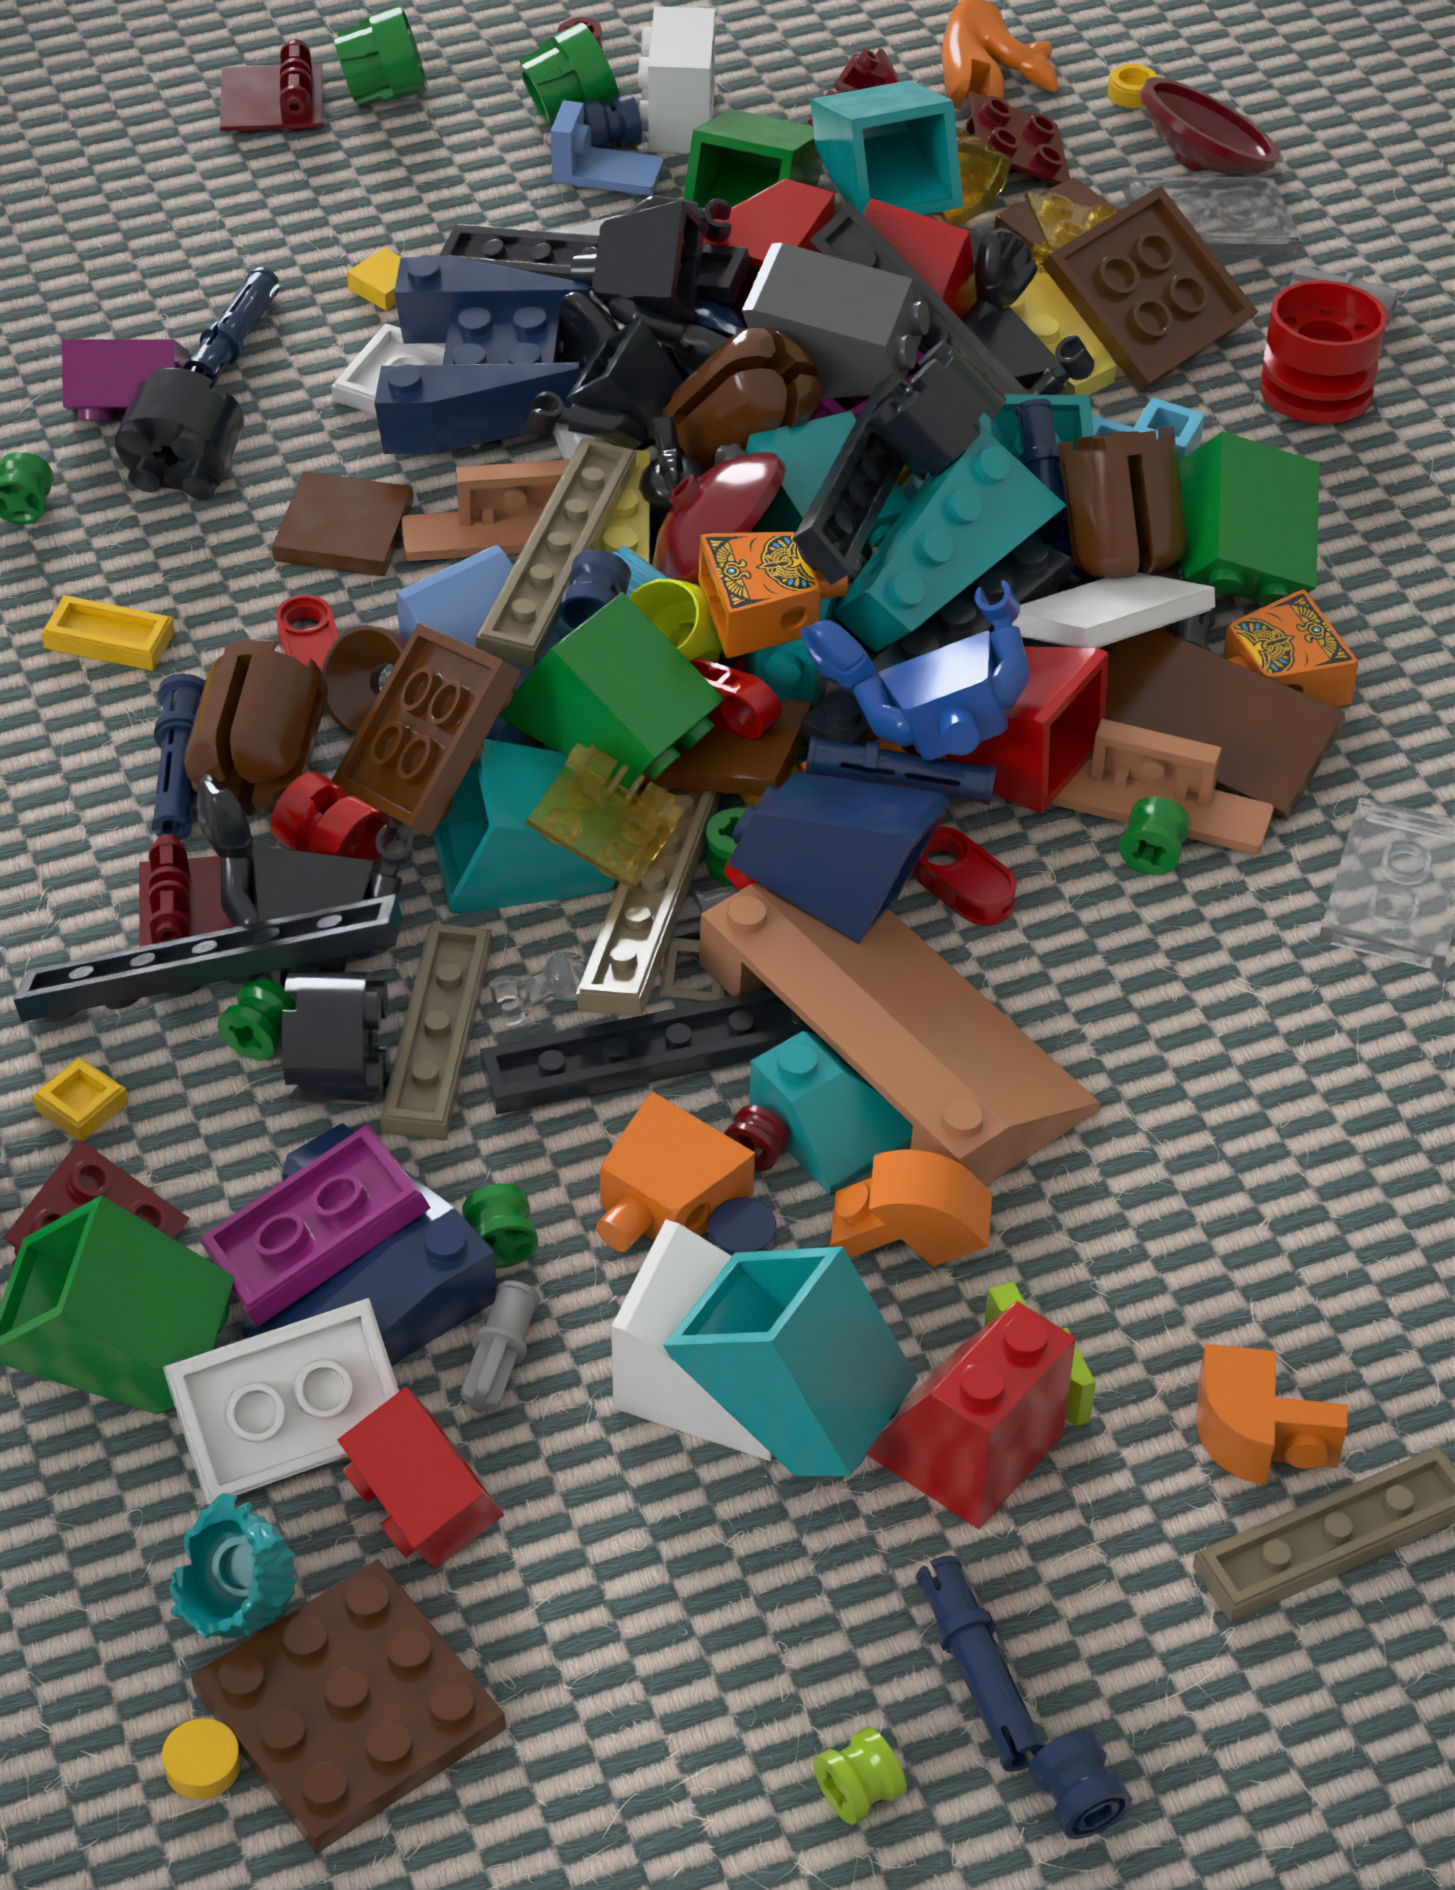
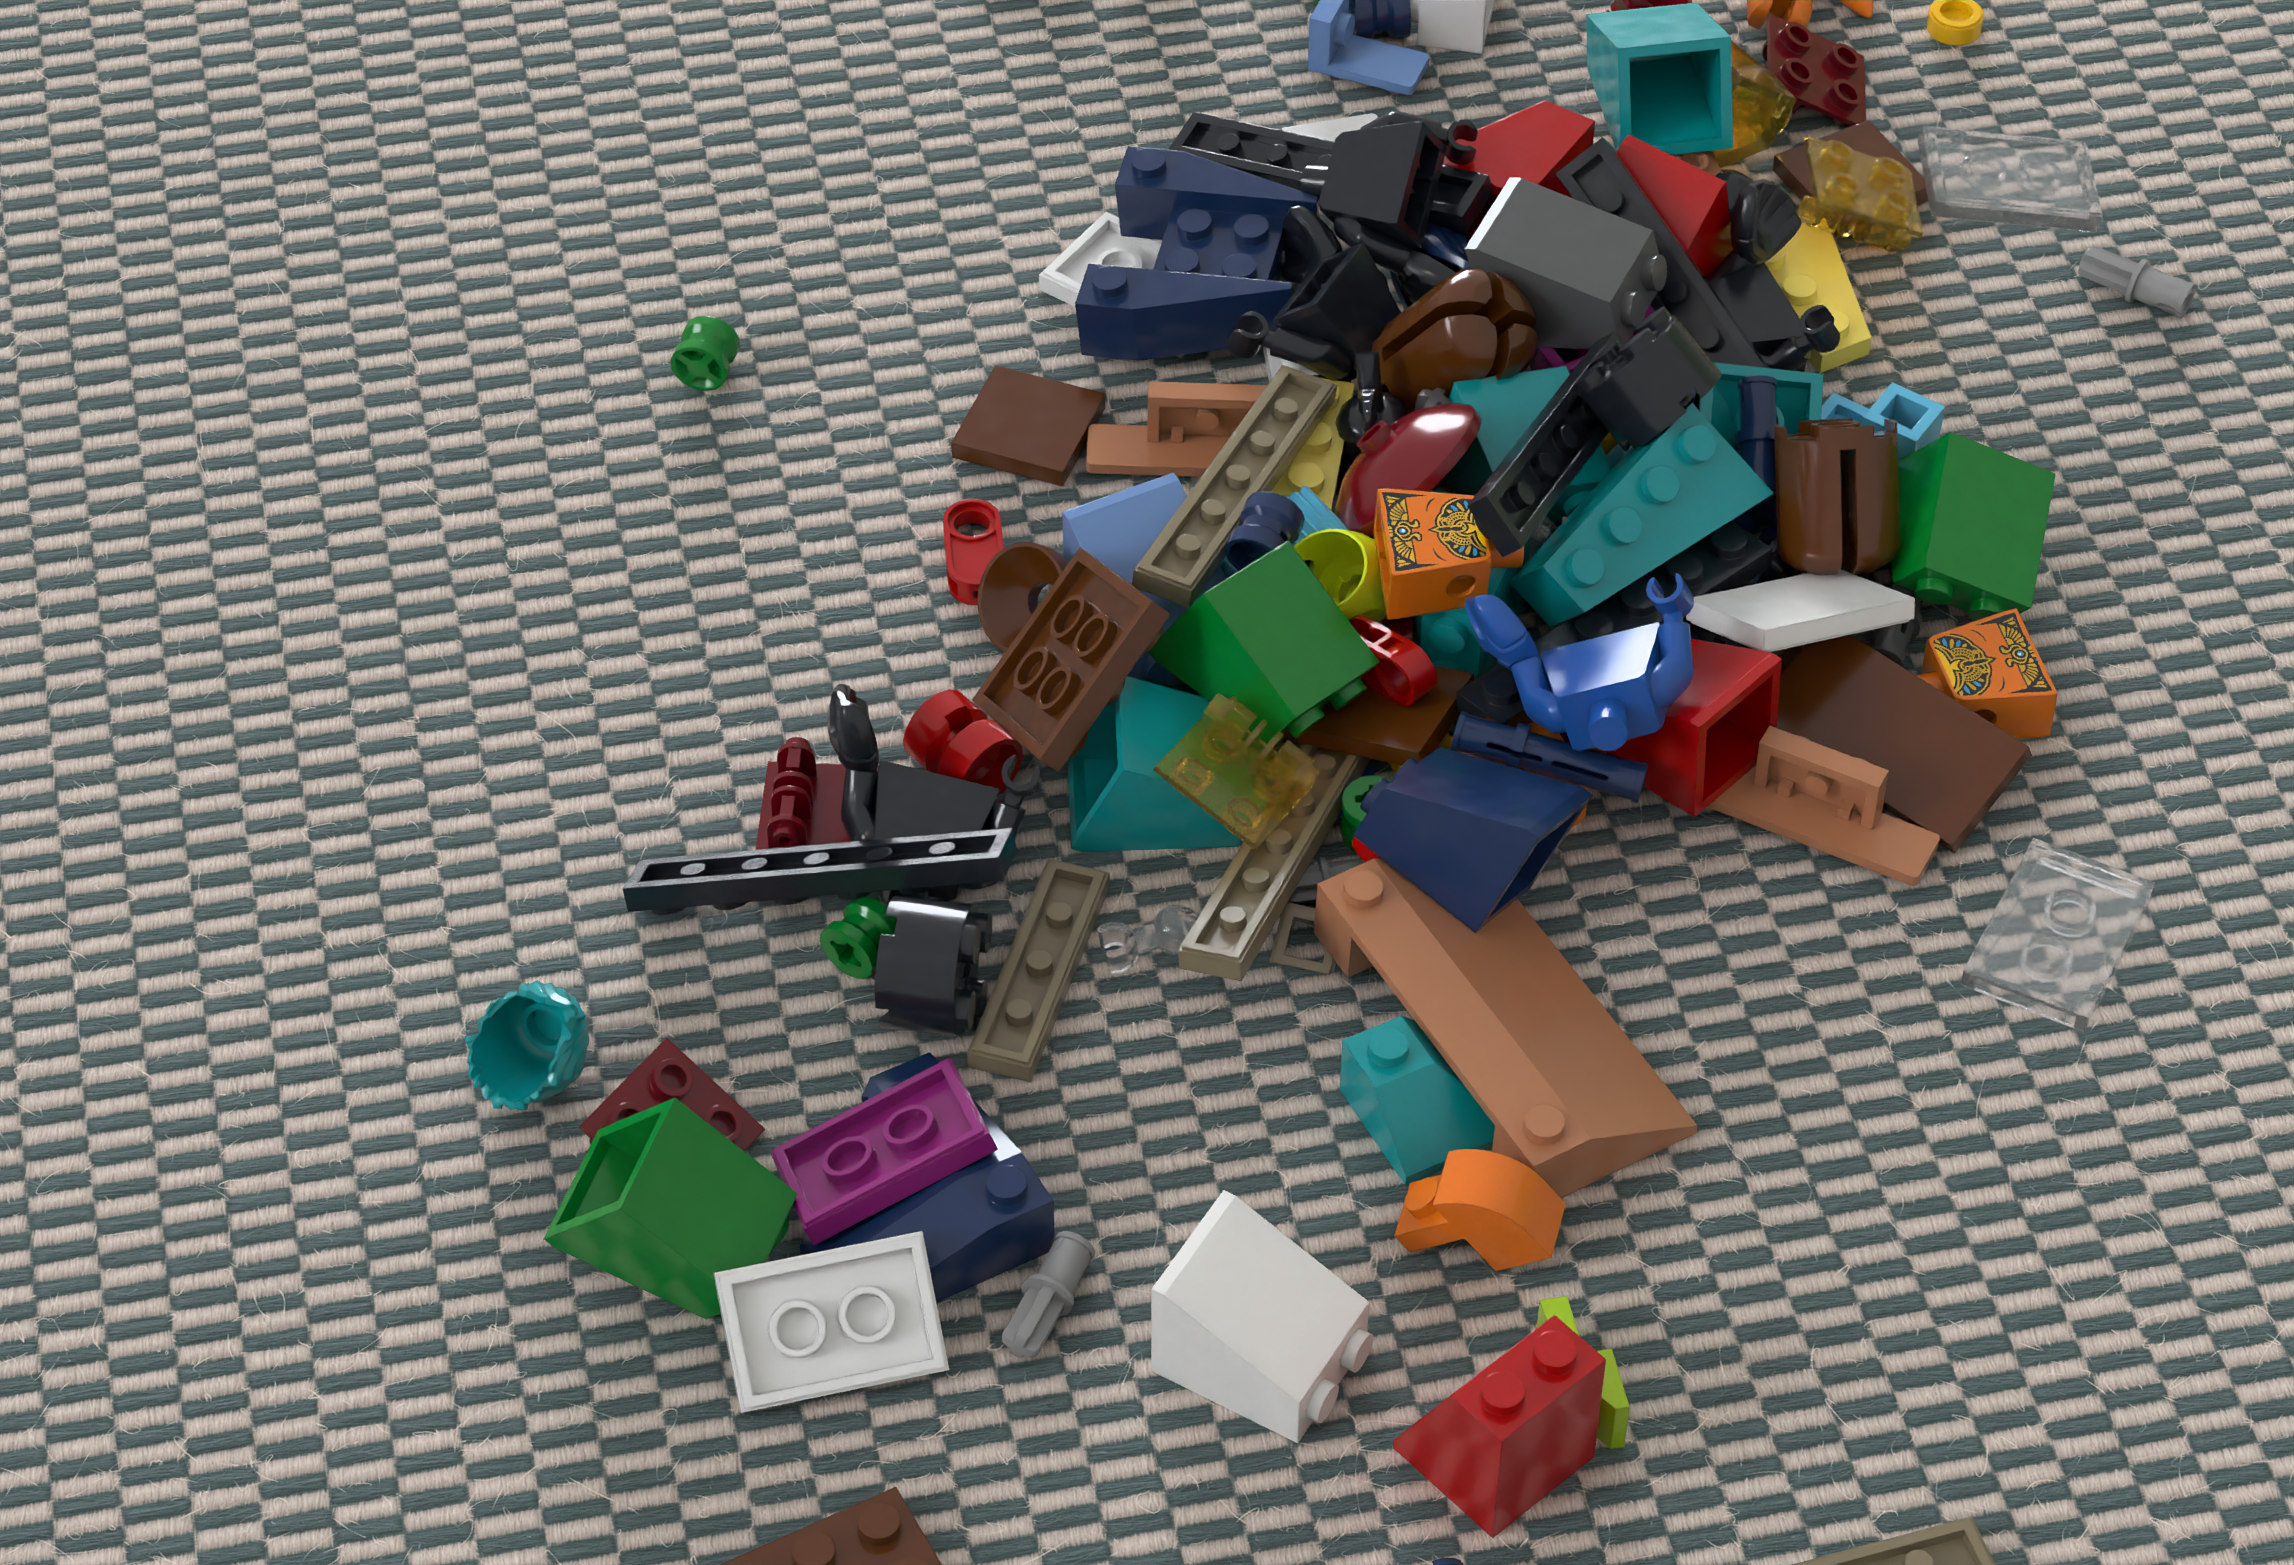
camera: 10 degrees right, 0 degrees up
(80, 1099) = (675, 997): yellow tile -> none
(104, 373) = (827, 245): magenta slope -> none
(108, 632) = (772, 516): yellow tile -> none
(171, 734) = (828, 635): dark blue pin -> none
(179, 433) = (872, 313): black brick -> none
(223, 340) = (935, 213): dark blue pin -> none
(237, 1572) = (757, 1480): teal hair -> none
(256, 723) = (903, 633): reddish brown cylinder -> none
(376, 278) = (1103, 158): yellow tile -> none
(418, 1478) = (945, 1414): red brick -> none
(502, 1221) = (1068, 1172): green wheel -> none
(637, 1050) = (1233, 1014): black plate -> none
(668, 1170) = (1246, 1143): orange torso -> none
(742, 1226) = (1309, 1211): dark blue tile -> none
(746, 154) = (1512, 66): green slope -> none
(761, 1133) = (1338, 1118): dark red bush -> none
(796, 1356) = (1331, 1343): teal slope -> none
(973, 885) = (1610, 884): red piece -> none
(1149, 288) = (1920, 257): reddish brown plate -> none
(1154, 835) = (1807, 854): green wheel -> none
(1206, 130) = (2021, 80): dark red dish -> none
(1250, 1427) = (1781, 1471): orange brick -> none
(1322, 351) = (2092, 347): red wheel -> none

